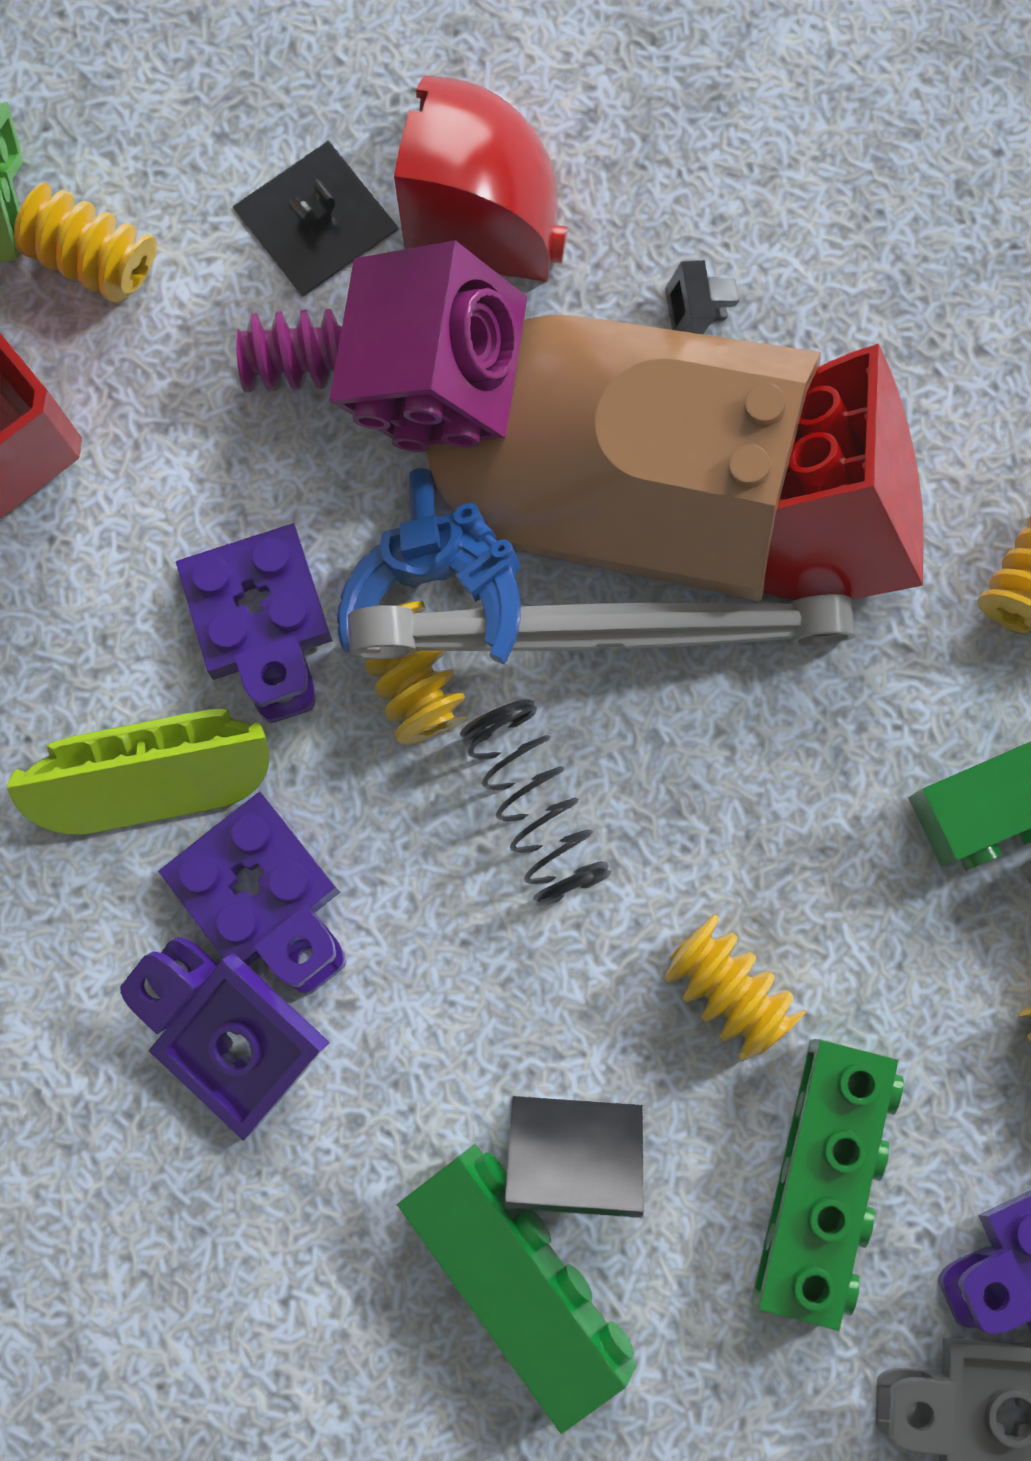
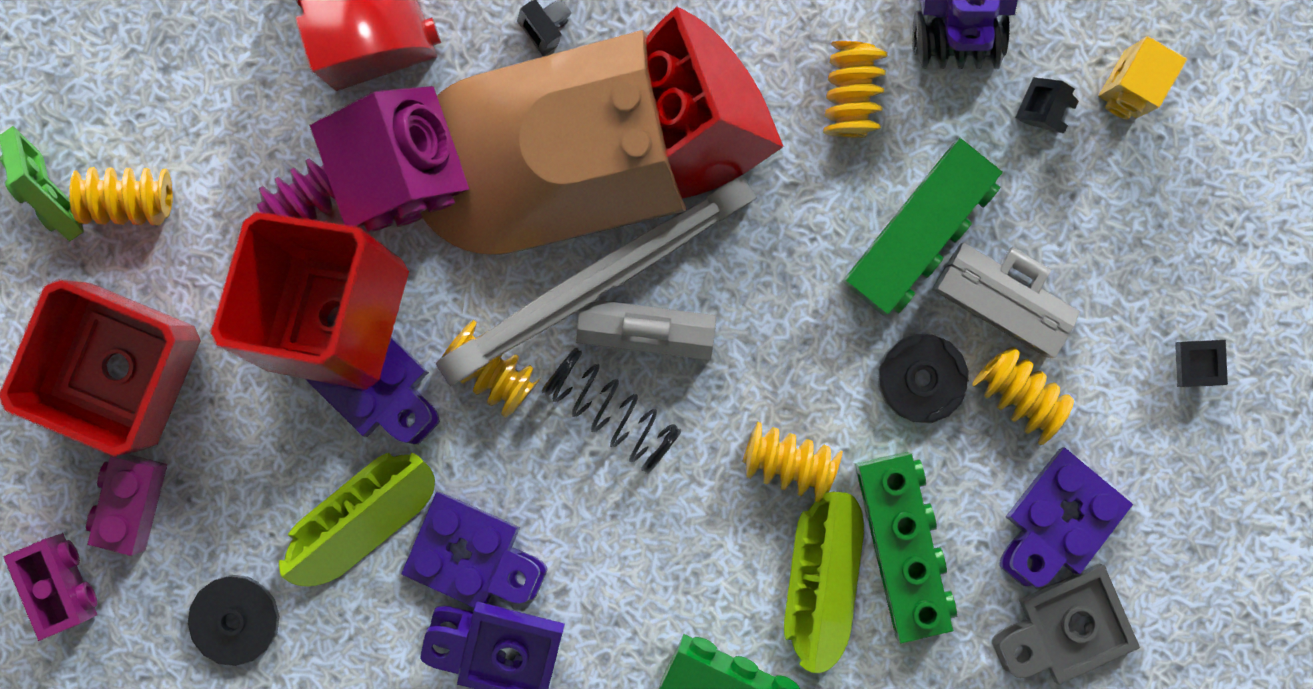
camera: 25 degrees left, 10 degrees up
(237, 459) = (287, 283): none -> red plate
(315, 218) = (259, 93): black piece -> none
(435, 550) = (463, 285): blue bar -> none
(575, 1157) = (747, 611): piece -> none
(631, 725) = (647, 329): none -> light grey piece
(700, 1169) = (824, 580): none -> lime brick
(991, 973) = (946, 384): none -> black plate

